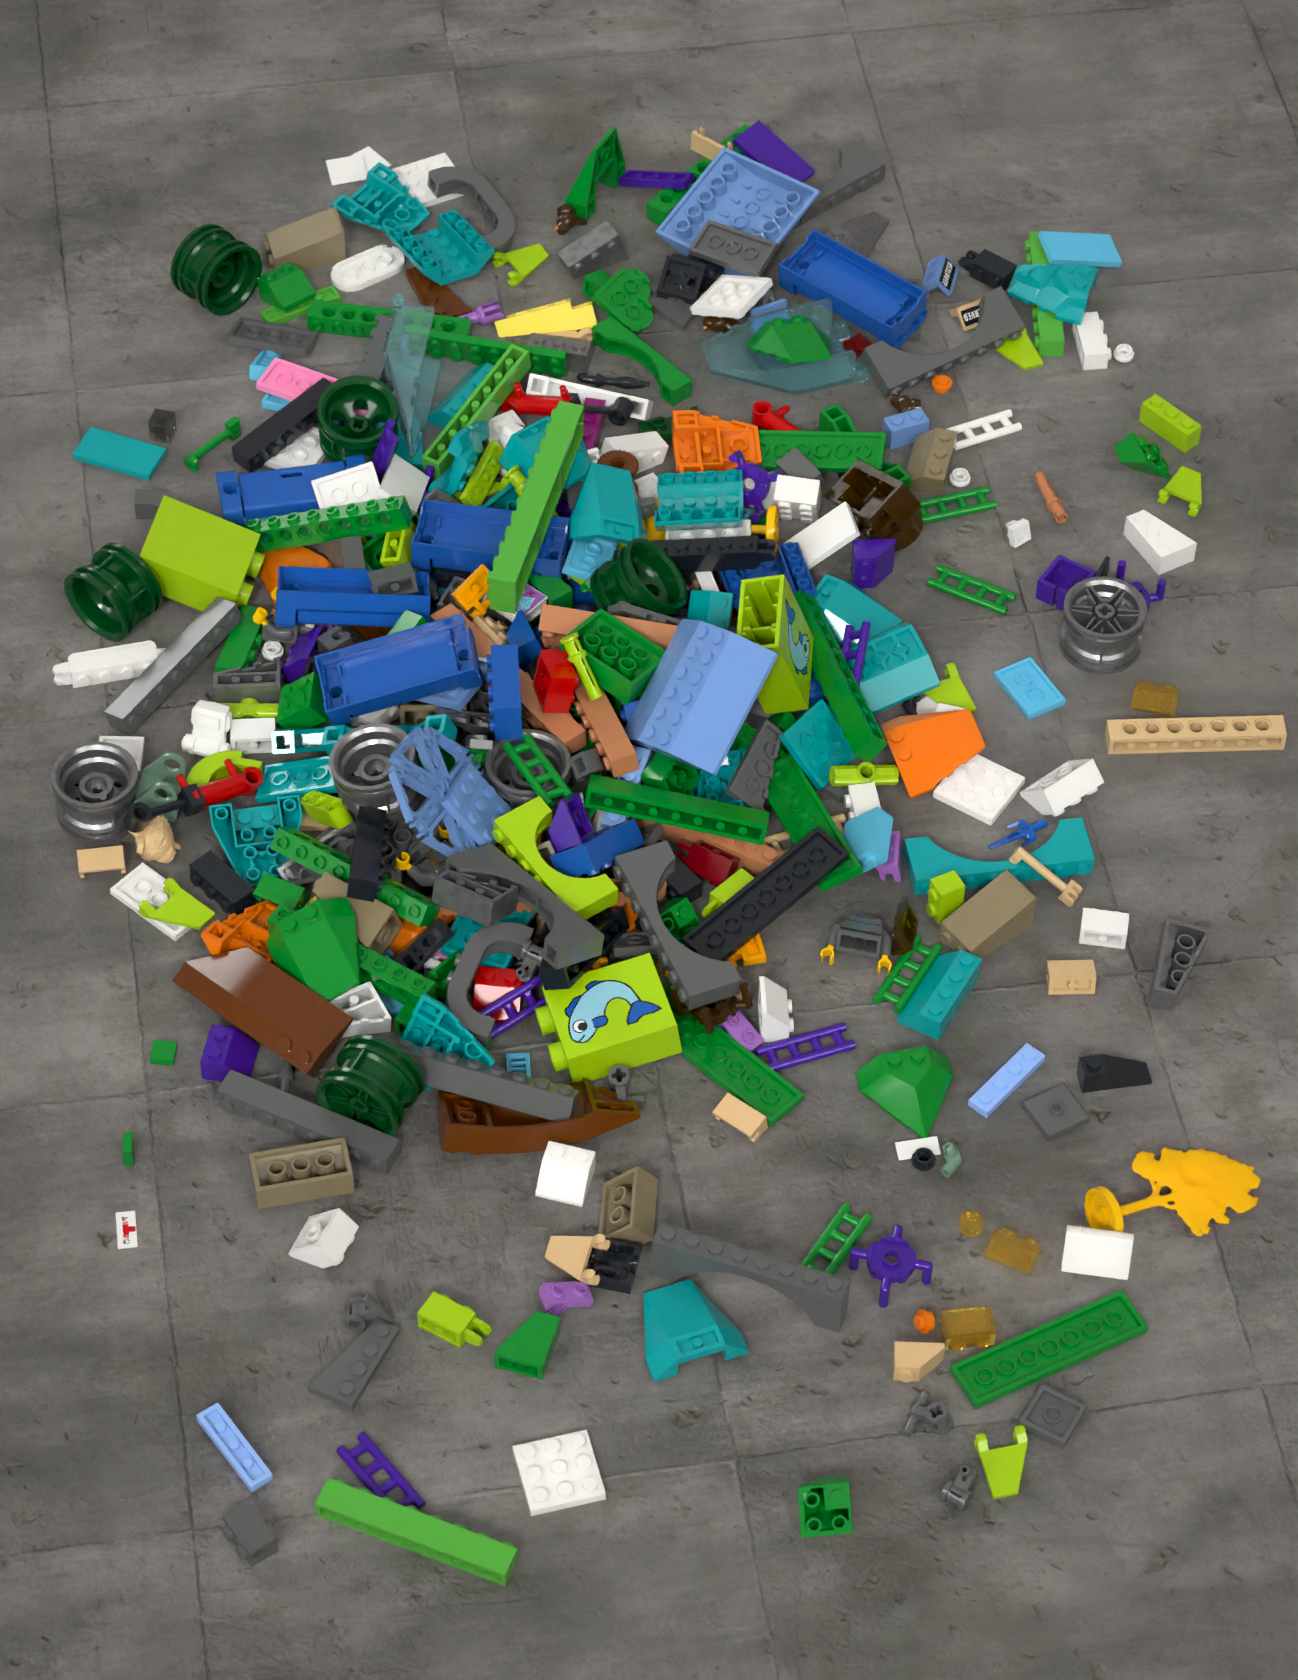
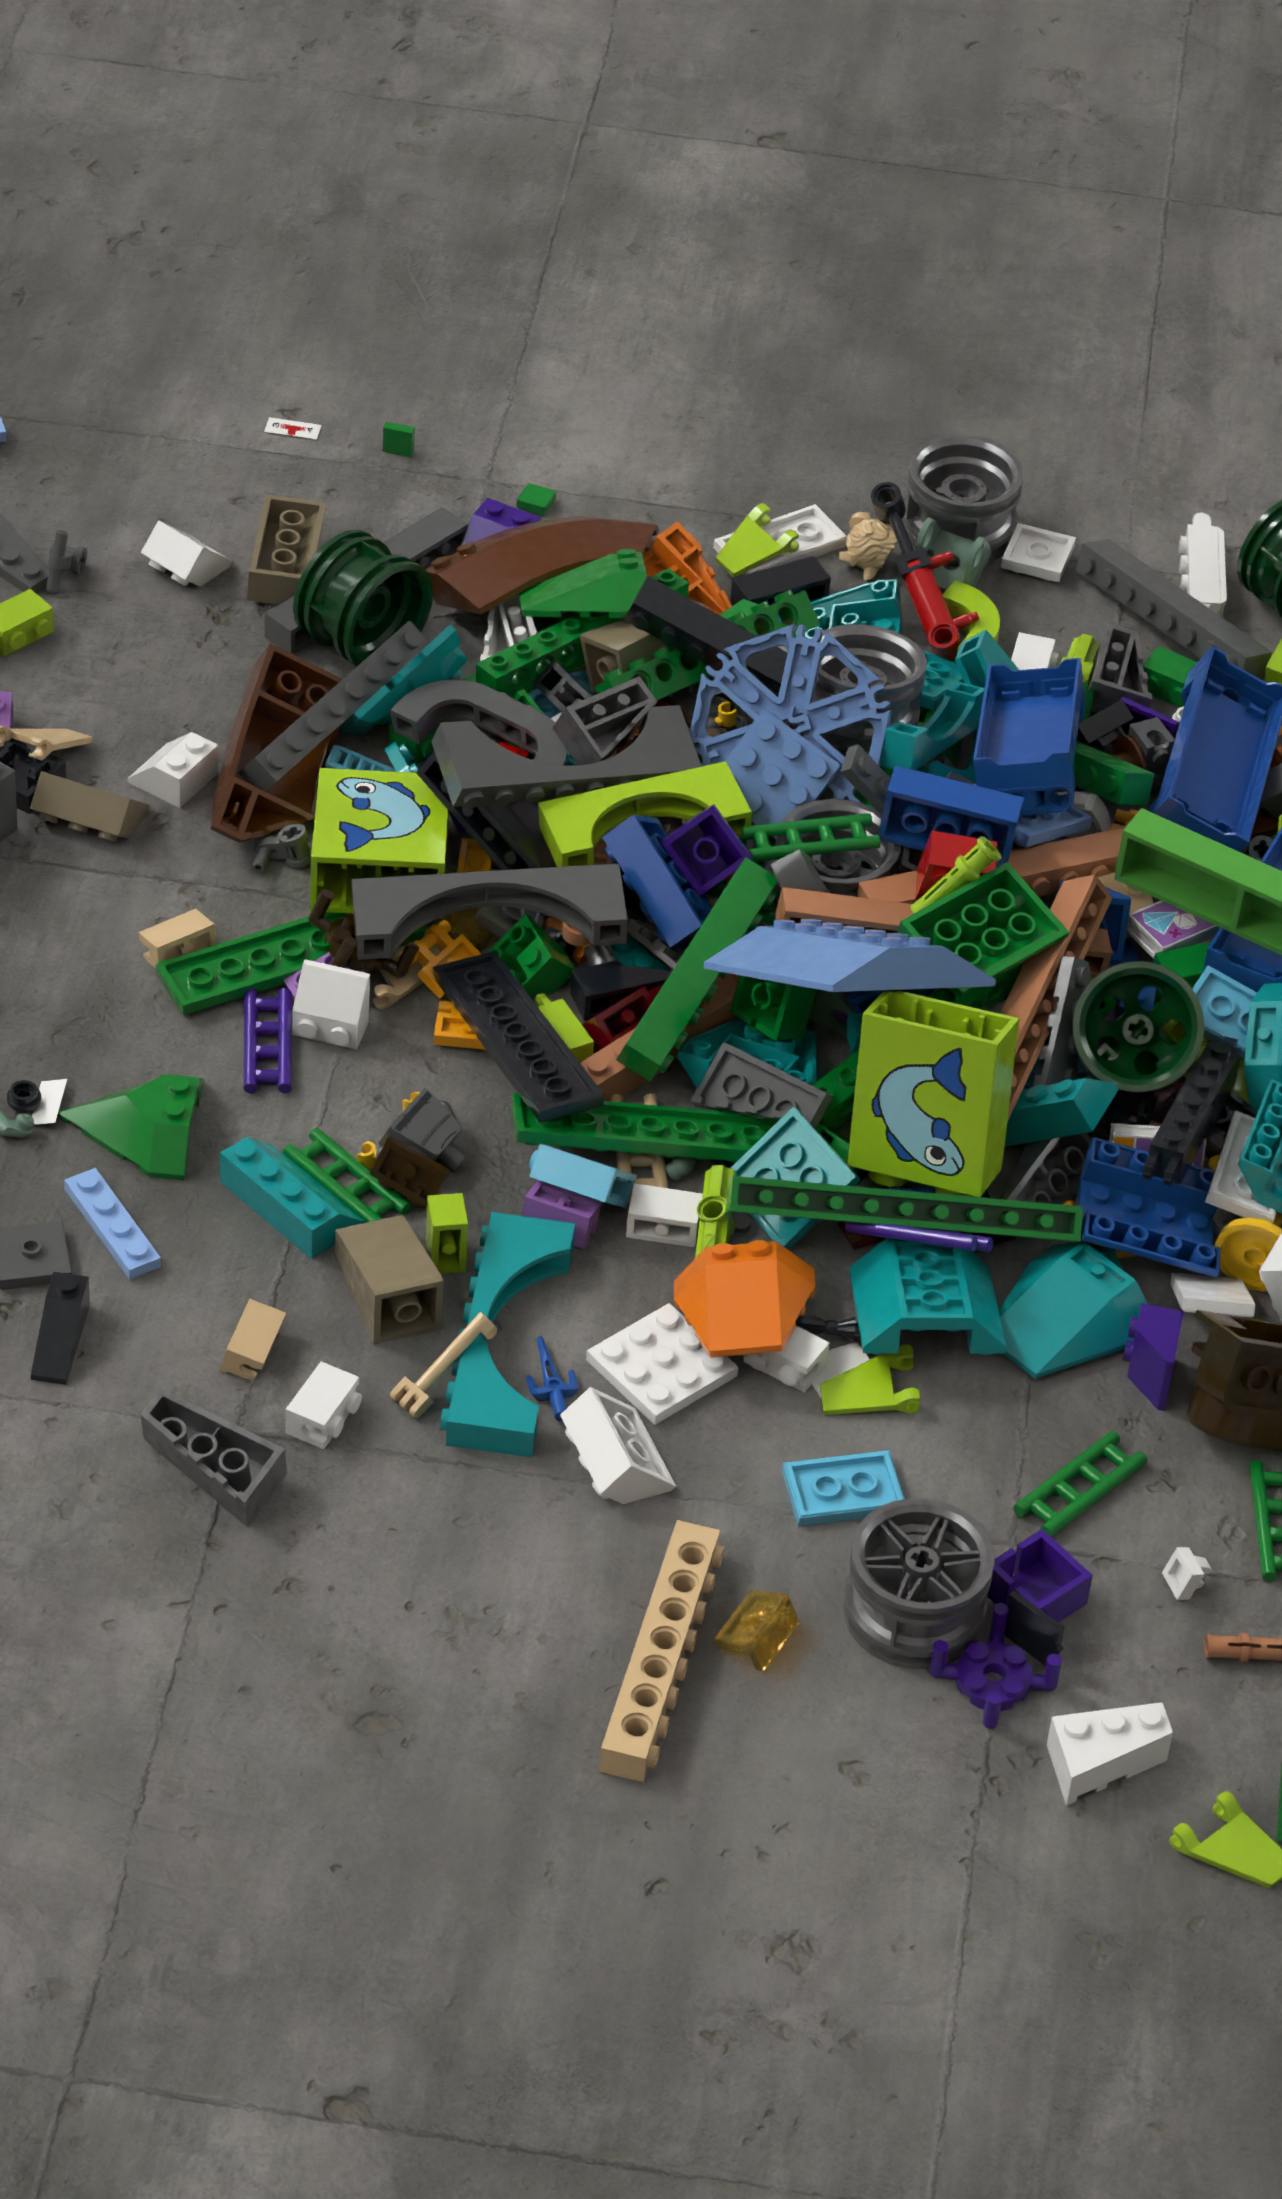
camera: 105 degrees right, 5 degrees down
(101, 860) = (856, 496): tan hinge -> none
(210, 729) = (1041, 619): white piece -> none
(393, 580) = (1228, 790): dark grey brick -> none
(516, 1036) = (401, 758): none -> teal plate

